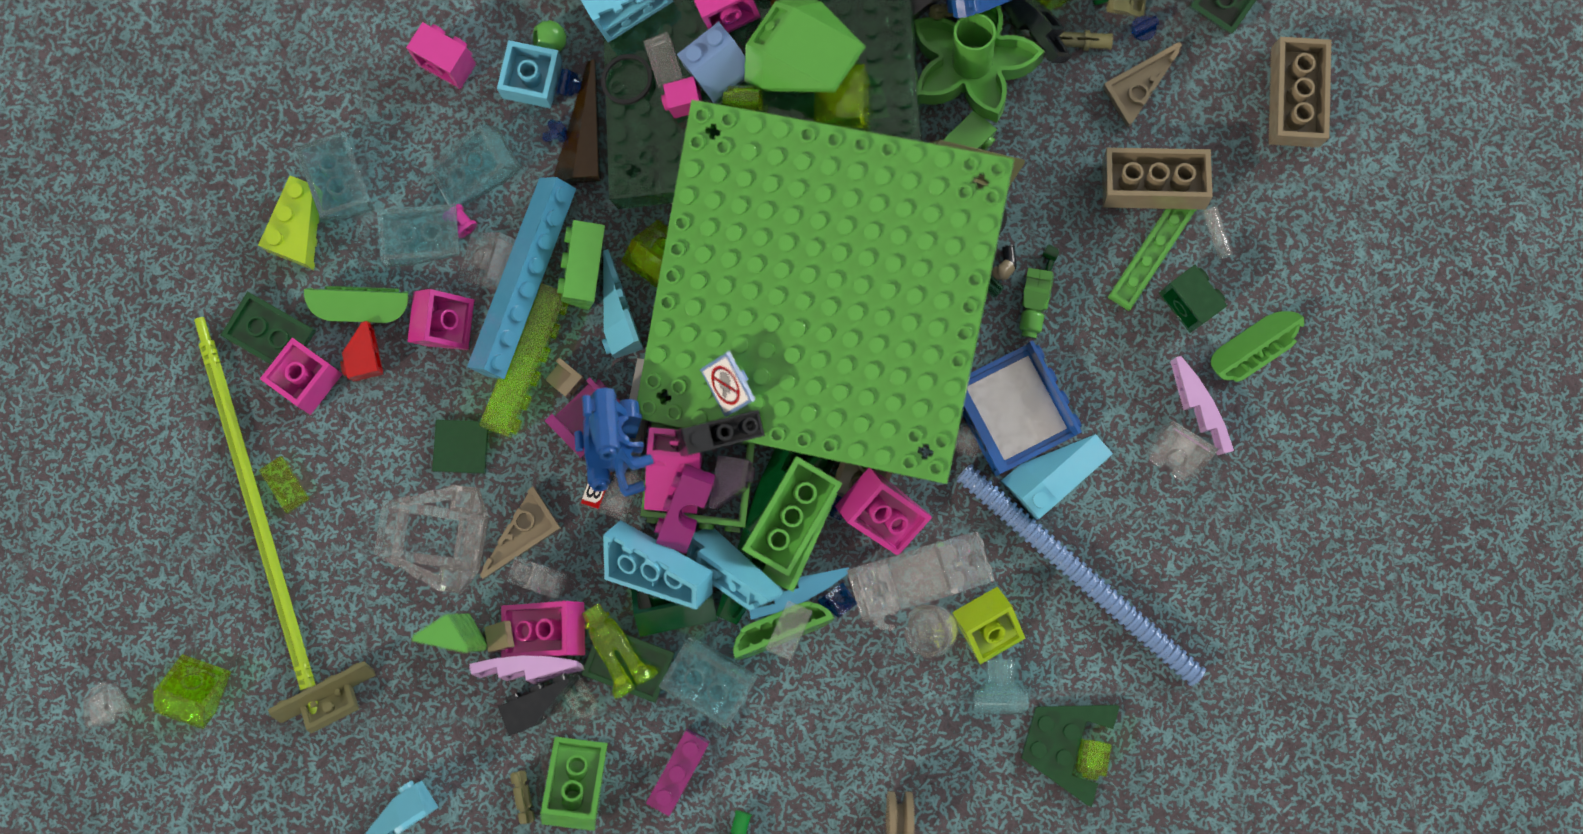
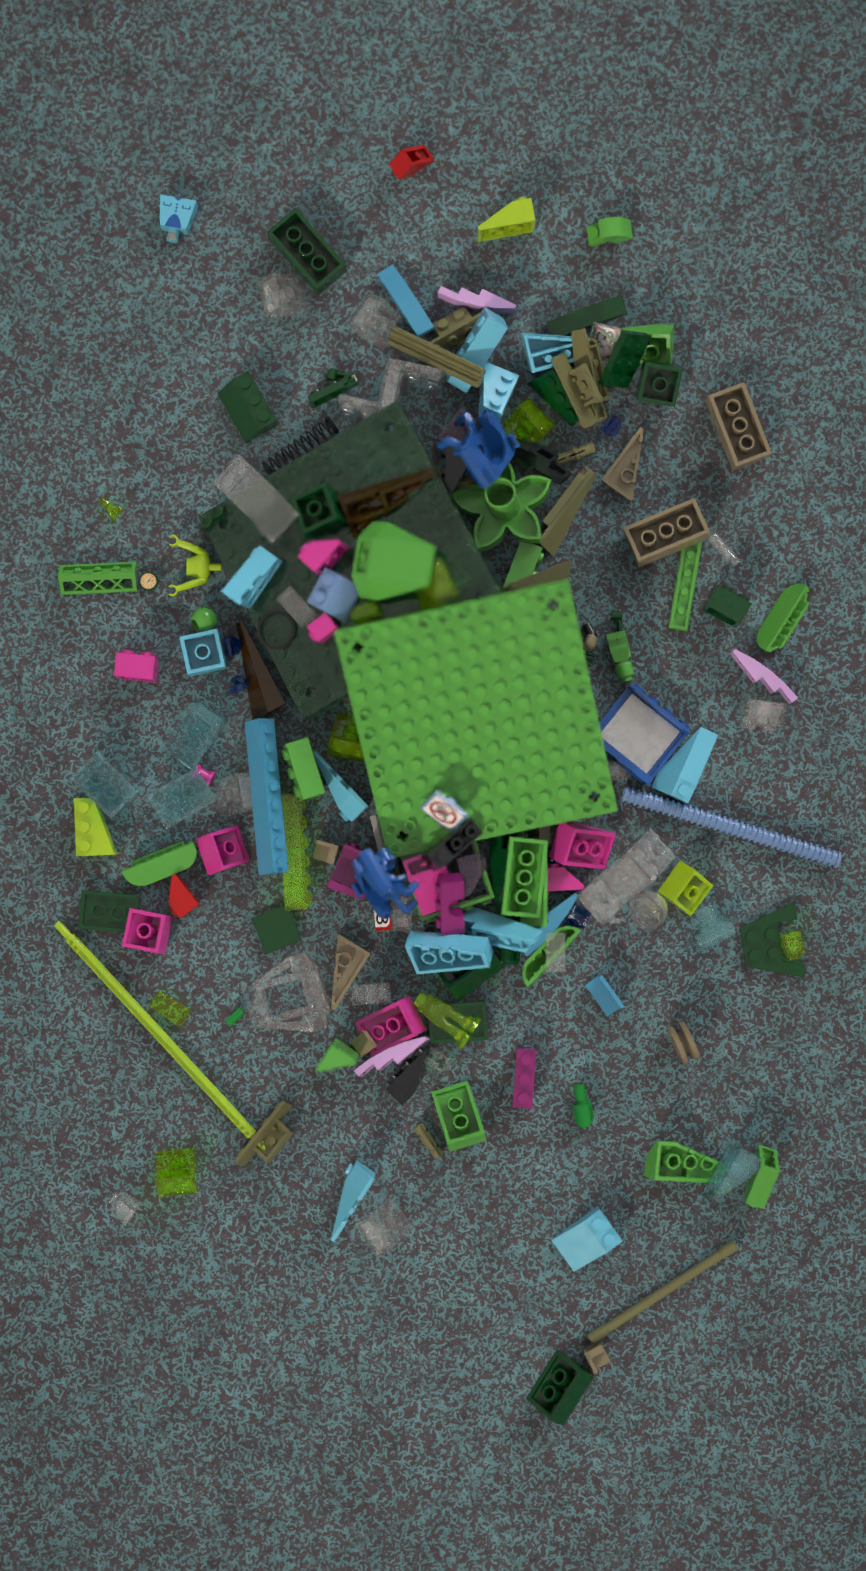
camera: 25 degrees left, 5 degrees up
(357, 530) = (235, 1016): none -> green tile
(708, 681) = (517, 1010): clear light blue slope -> none
(826, 713) = (604, 995): none -> dark azure panel
(837, 543) = (560, 879): none -> dark pink slope
(1042, 101) = (565, 510): none -> olive wedge

